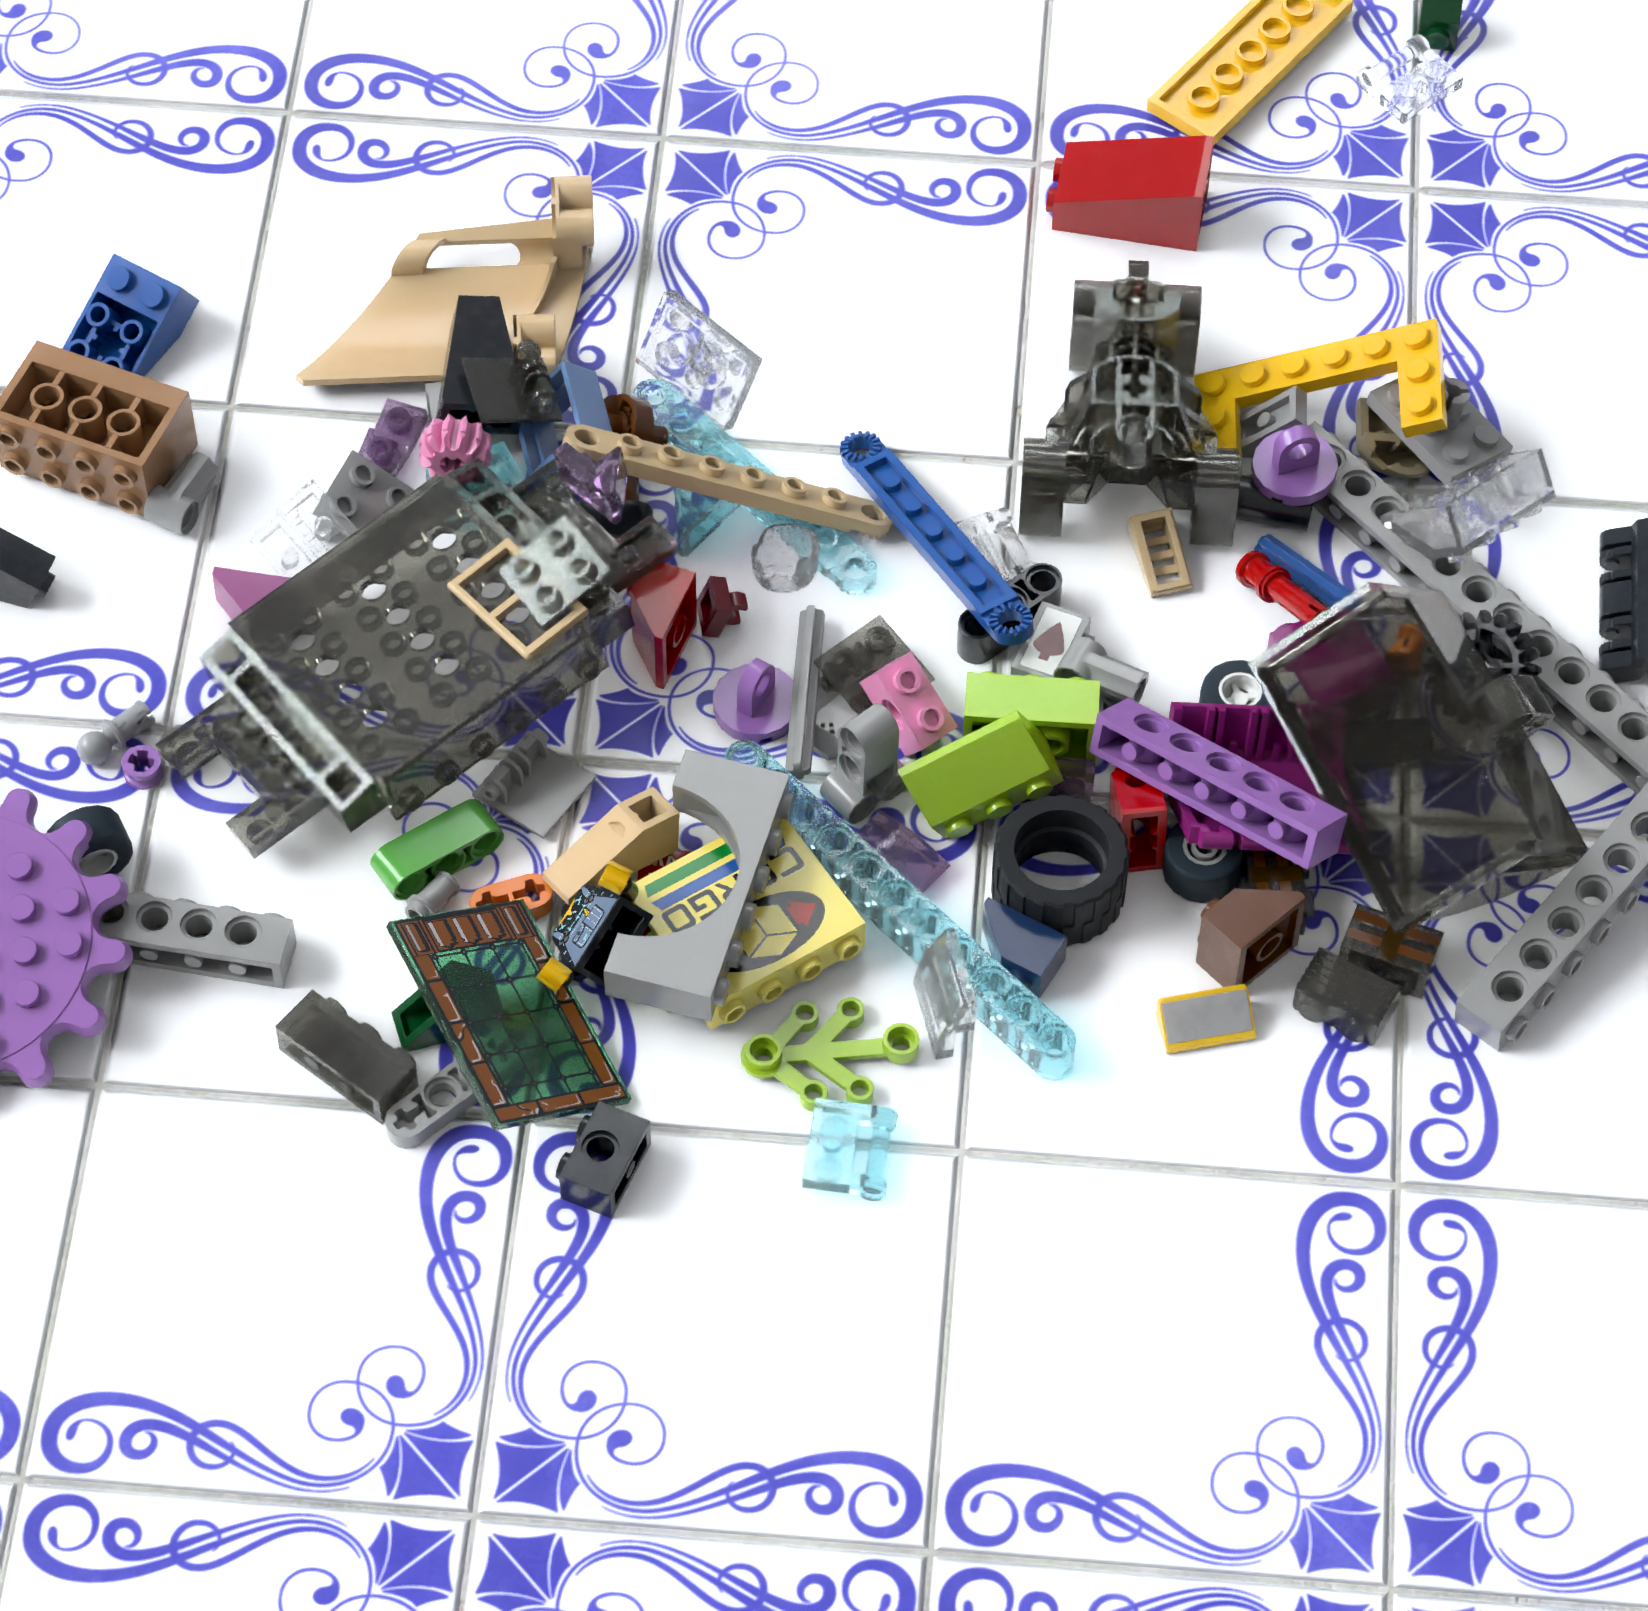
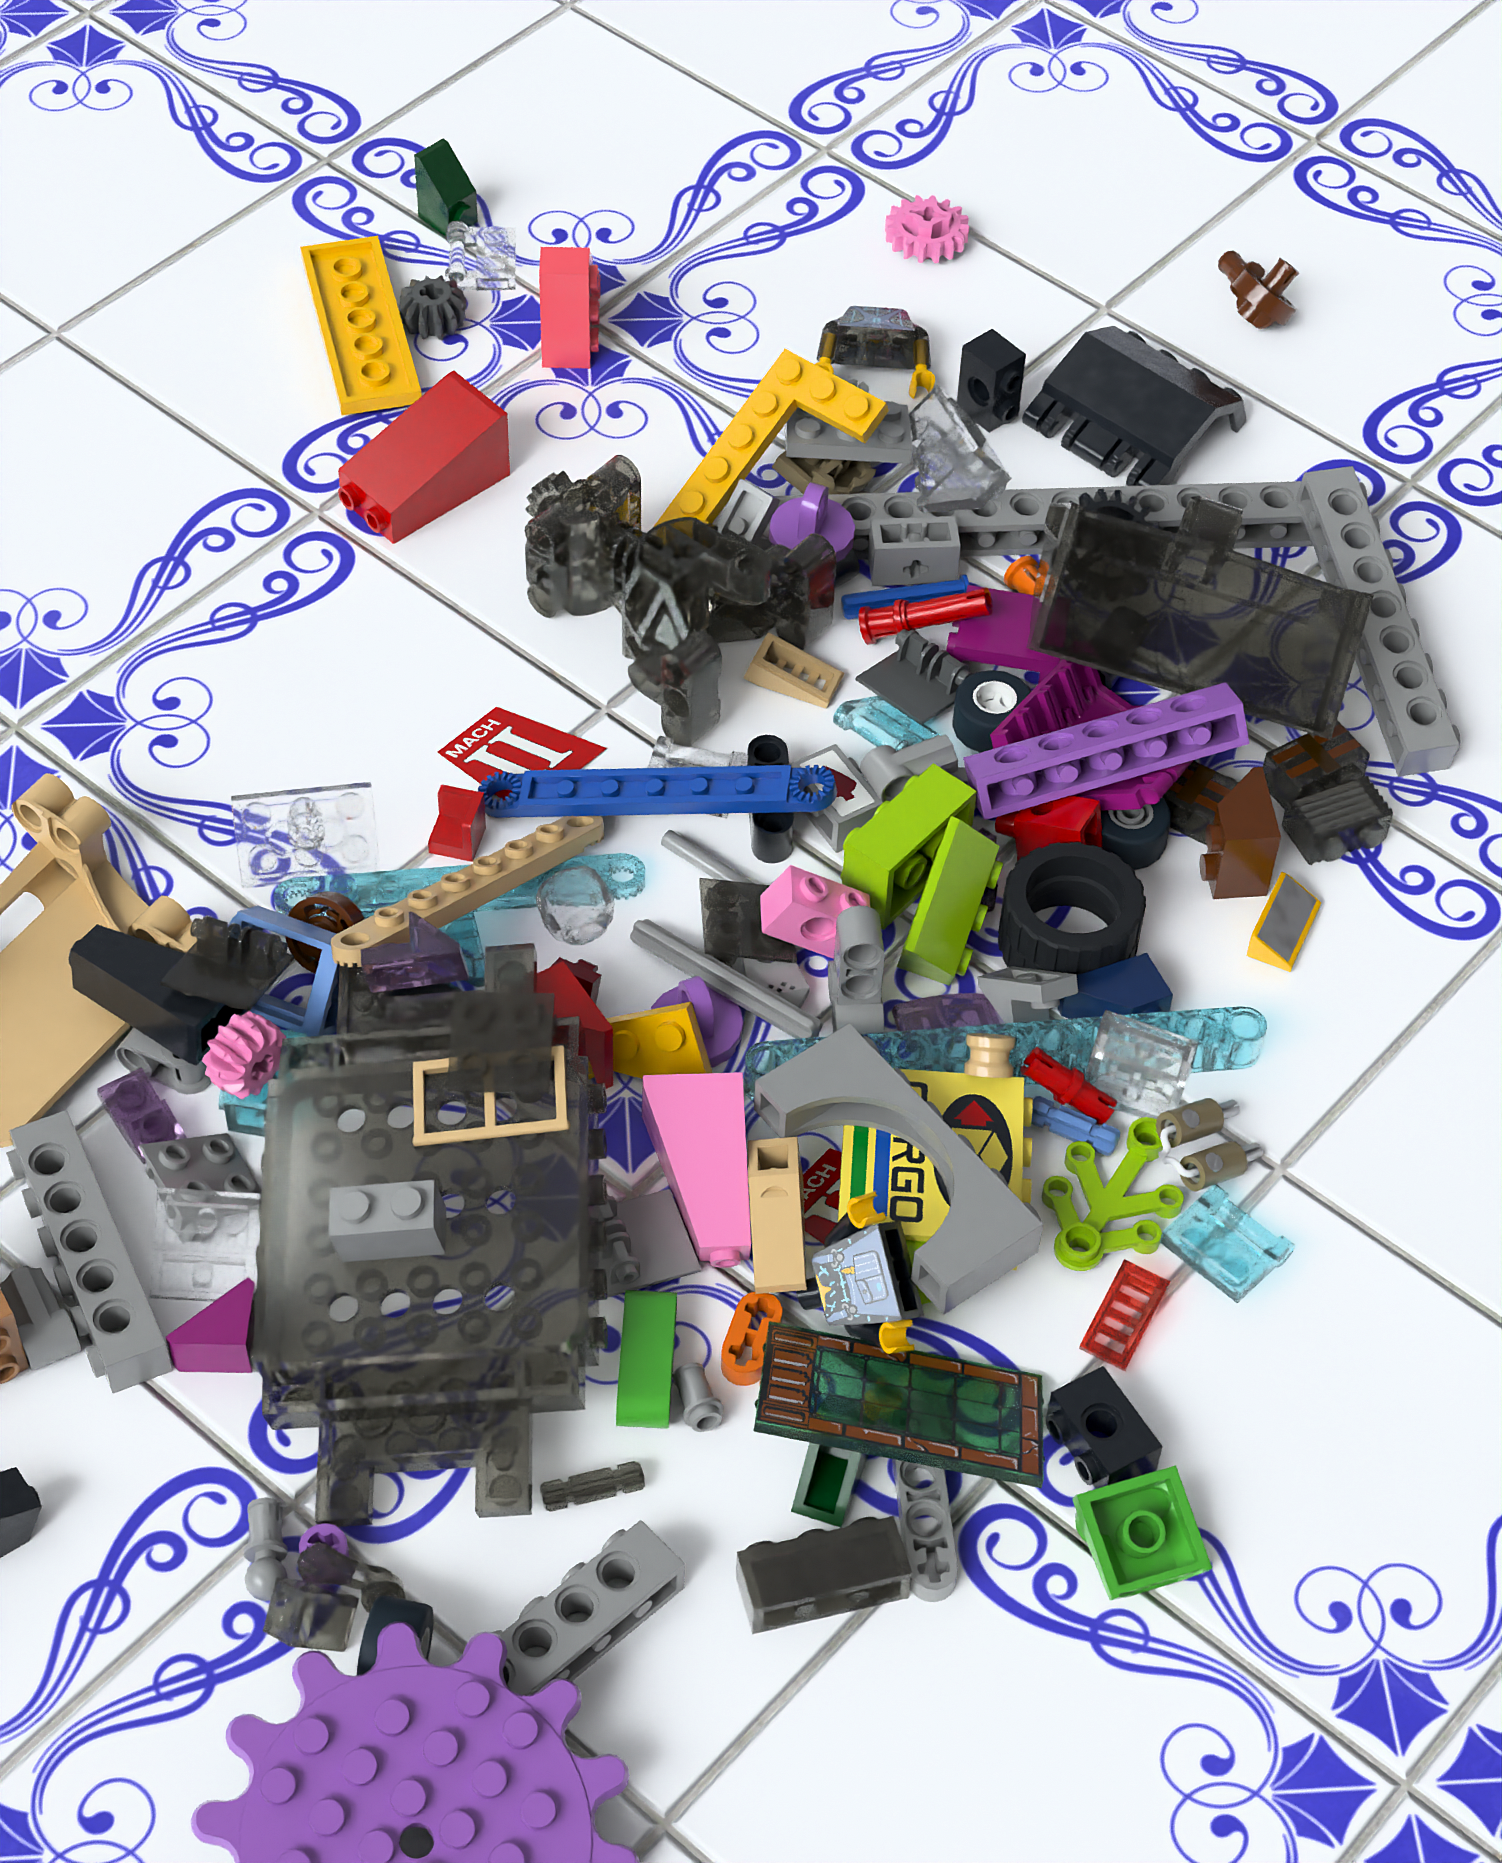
camera: 55 degrees left, 5 degrees down
(86, 784) = (310, 1615): none -> clear smoke panel
(133, 813) = (328, 1566): none -> clear smoke piece
(256, 481) = (122, 1356): none -> light grey brick
(312, 883) = (592, 1486): none -> clear smoke axle
(368, 610) = (387, 1221): none -> light grey brick
(533, 1227) = (1141, 1533): none -> bright green slope
(631, 754) = (703, 1153): none -> bright pink slope
(705, 690) = (659, 1042): none -> yellow wing
(743, 1133) = (1142, 1282): none -> clear red slope
(804, 447) = (459, 823): none -> red panel
(858, 886) = (989, 1055): none -> tan wheel
(873, 990) = (1074, 1126): none -> medium blue axle
(895, 960) = (1068, 1086): none -> red pin
(917, 614) = (700, 858): none -> light grey bar
(922, 435) = (515, 745): none -> red sticker
(932, 1060) = (1214, 1163): none -> dark tan piece
(962, 885) = (1025, 992): none -> light grey slope
(1161, 643) = (881, 723): none -> clear light blue plate
(1223, 629) = (916, 677): none -> dark grey hinge
(1313, 85) = (432, 307): none -> dark grey gear
(1353, 545) = (913, 550): none -> light grey brick
(1391, 158) = (568, 306): none -> coral brick
(1572, 380) = (877, 339): none -> clear smoke torso
(1599, 483) = (991, 380): none -> black brick

